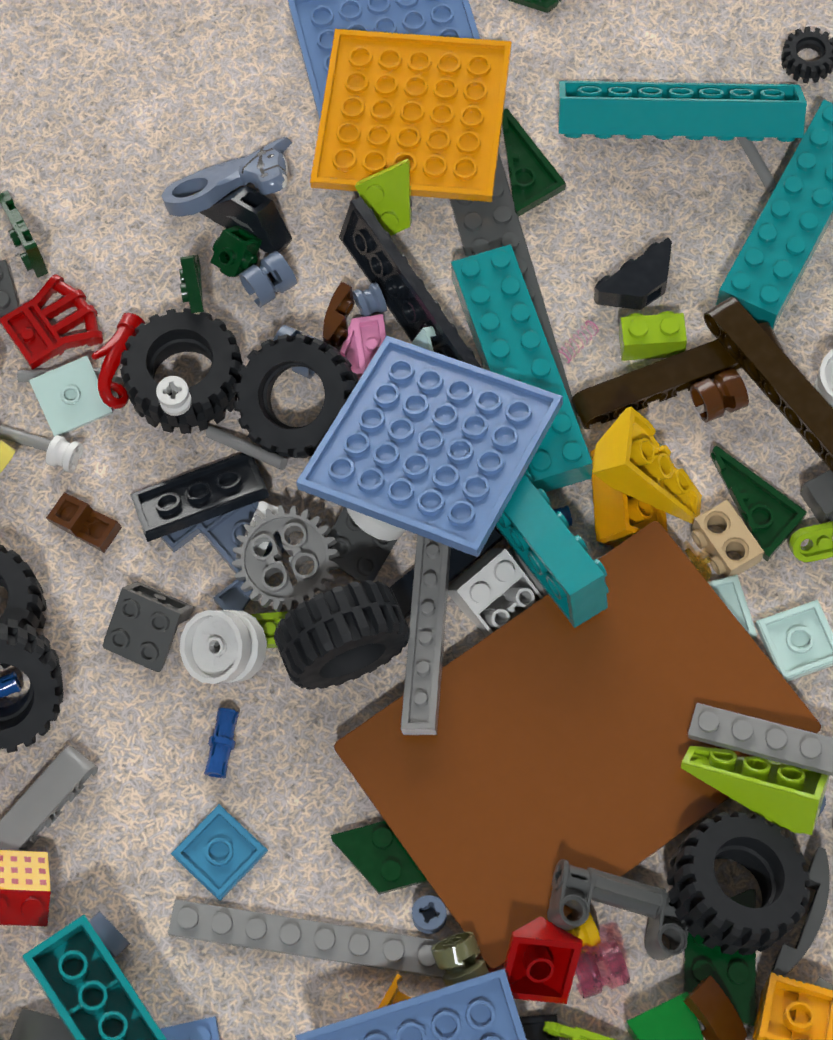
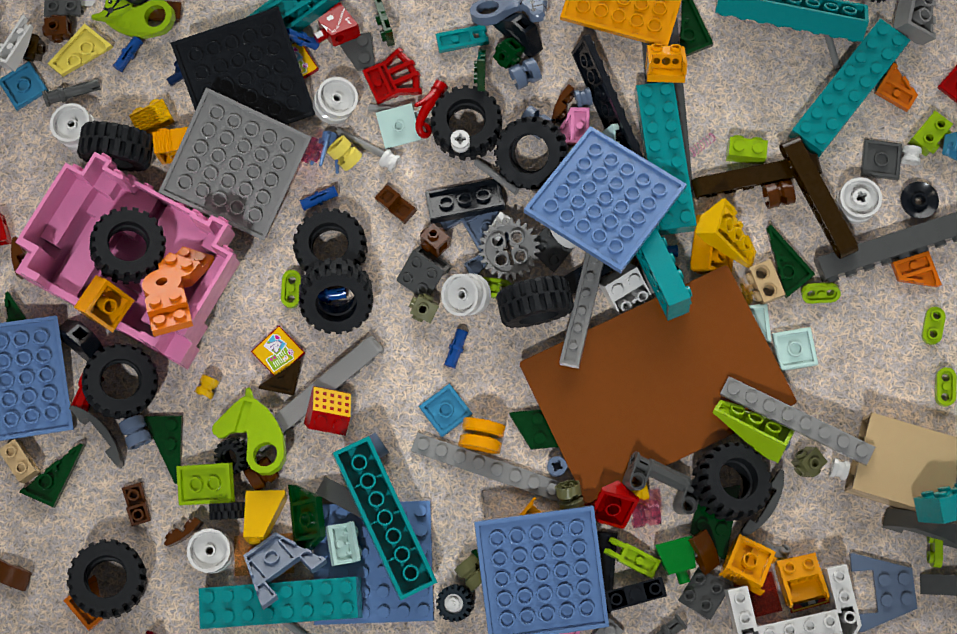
camera: 10 degrees right, 10 degrees up
(157, 244) = (461, 38): none -> teal plate
(157, 567) = (434, 240): none -> reddish brown brick
(167, 683) = (427, 314): none -> olive brick
(287, 882) = (481, 435): none -> light orange wheel
(389, 196) = (605, 35): lime wing -> none
(497, 229) = (666, 63): none -> light orange piece
(638, 280) = (745, 113): black slope -> none

